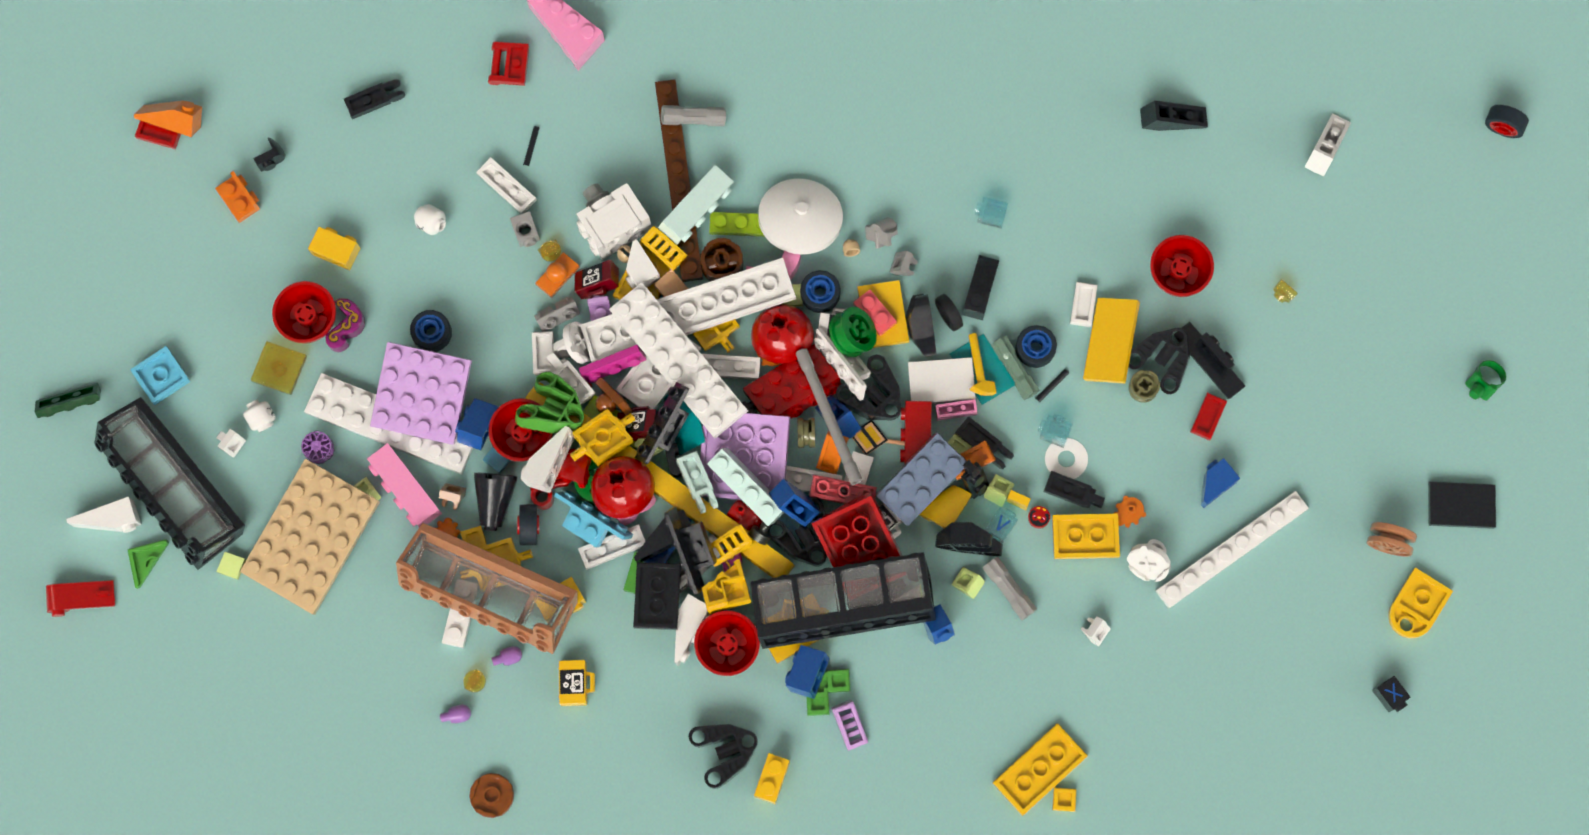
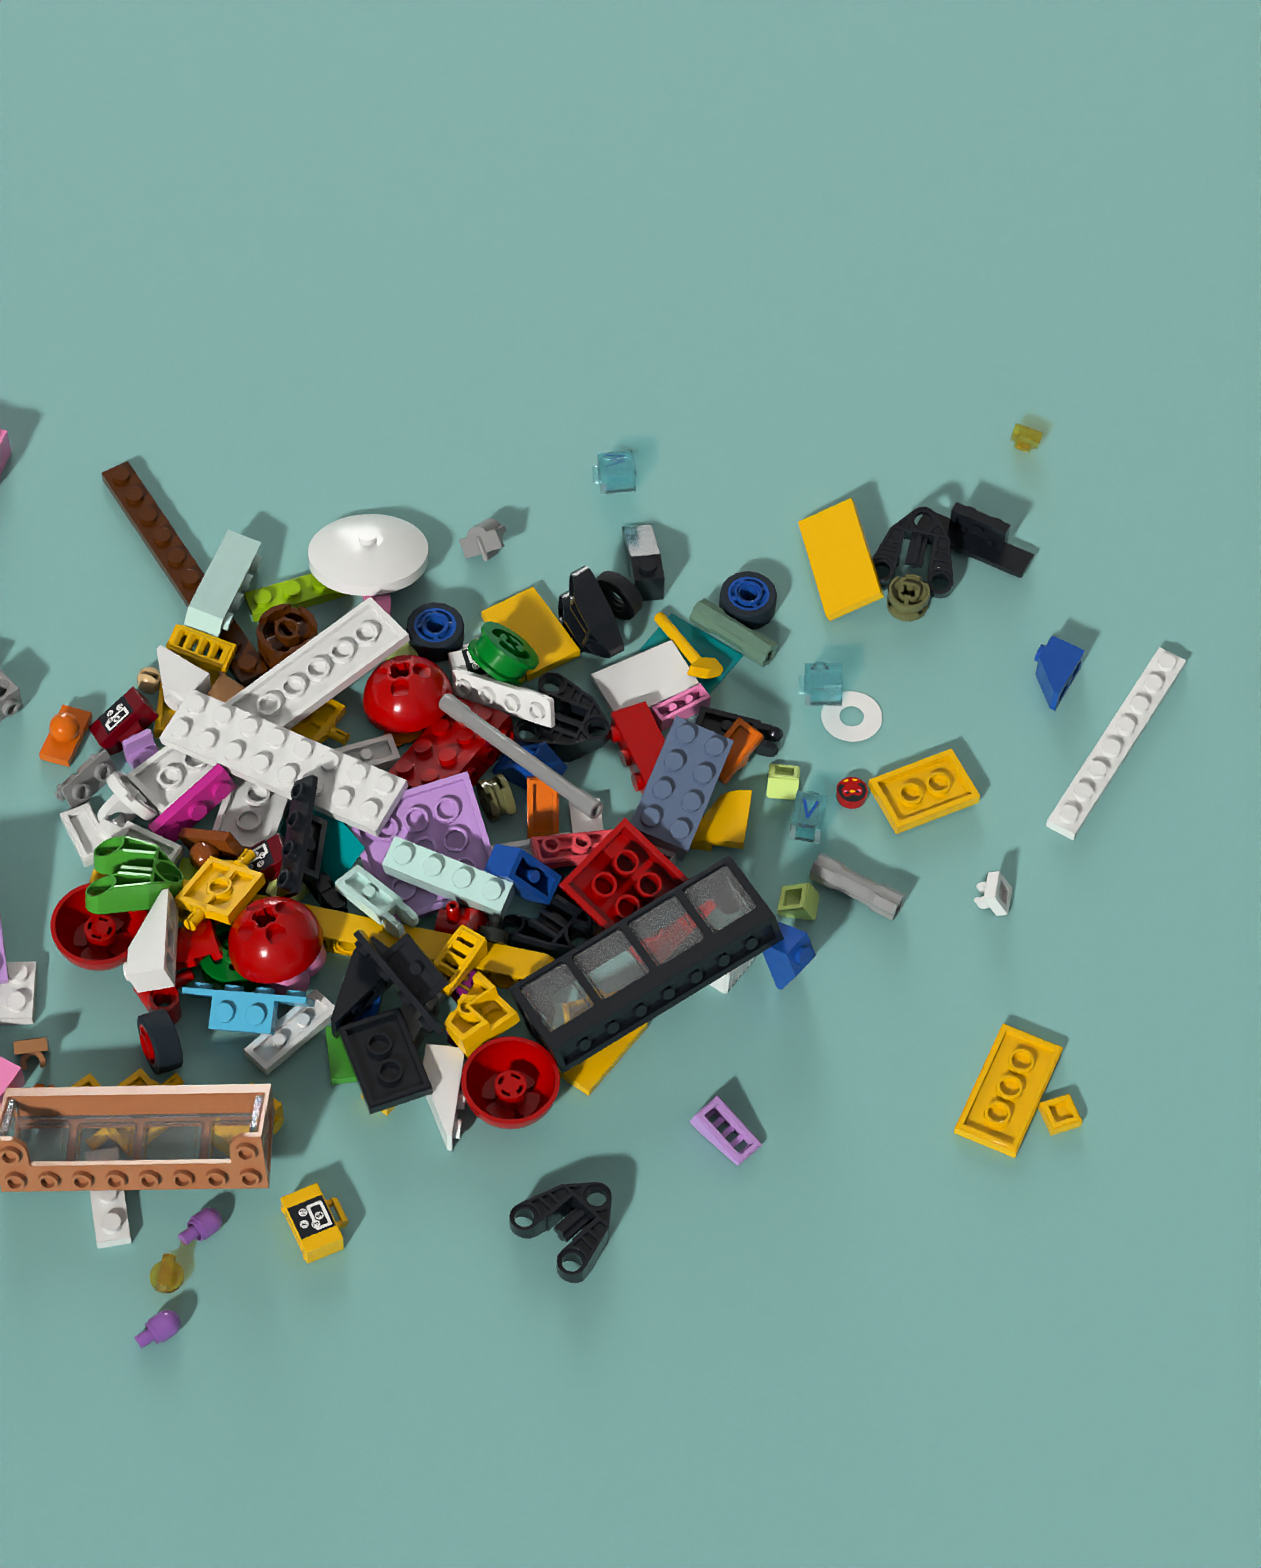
camera: 30 degrees left, 20 degrees down
(475, 426) = (30, 944): blue brick -> none
(491, 795) = (257, 1418): dark orange tile -> none
(493, 498) = (94, 1025): black cone -> none
(496, 461) = (77, 984): medium azure tile -> none
(550, 250) = (42, 709): clear yellow plate -> none
(611, 219) = (115, 637): white piece -> none
(686, 115) = (174, 488): light grey axle -> none
(772, 778) = (652, 1235): yellow brick -> none
(807, 671) = (636, 1082): blue brick -> none
(832, 682) = (673, 1090): bright green tile -> none
(851, 248) = (452, 572): tan hinge -> none
(871, 438) = (589, 778): piece -> none
(878, 313) = (532, 631): coral plate -> none
(902, 263) = (528, 566): light grey tile -> none
(968, 538) = (777, 839): black connector -> none
(974, 479) = (747, 765): black hinge -> none
(1018, 500) = (815, 779): yellow tile -> none
(1052, 385) = (791, 638): black piece -> none
(1072, 491) = (880, 745): black hinge -> none
(1083, 304) = (783, 537): white tile -> none
(1129, 511) = (965, 743): orange piece -> none
(1149, 561) = (1021, 786): white tile -> none
(1172, 116) = (785, 299): black slope -> none
(1189, 258) = (886, 445): red piece -> none
(1208, 416) = (1006, 605): red tile -> none
(1327, 144) = (992, 271): white slope -> none
(1506, 121) = (1189, 175): black wheel -> none

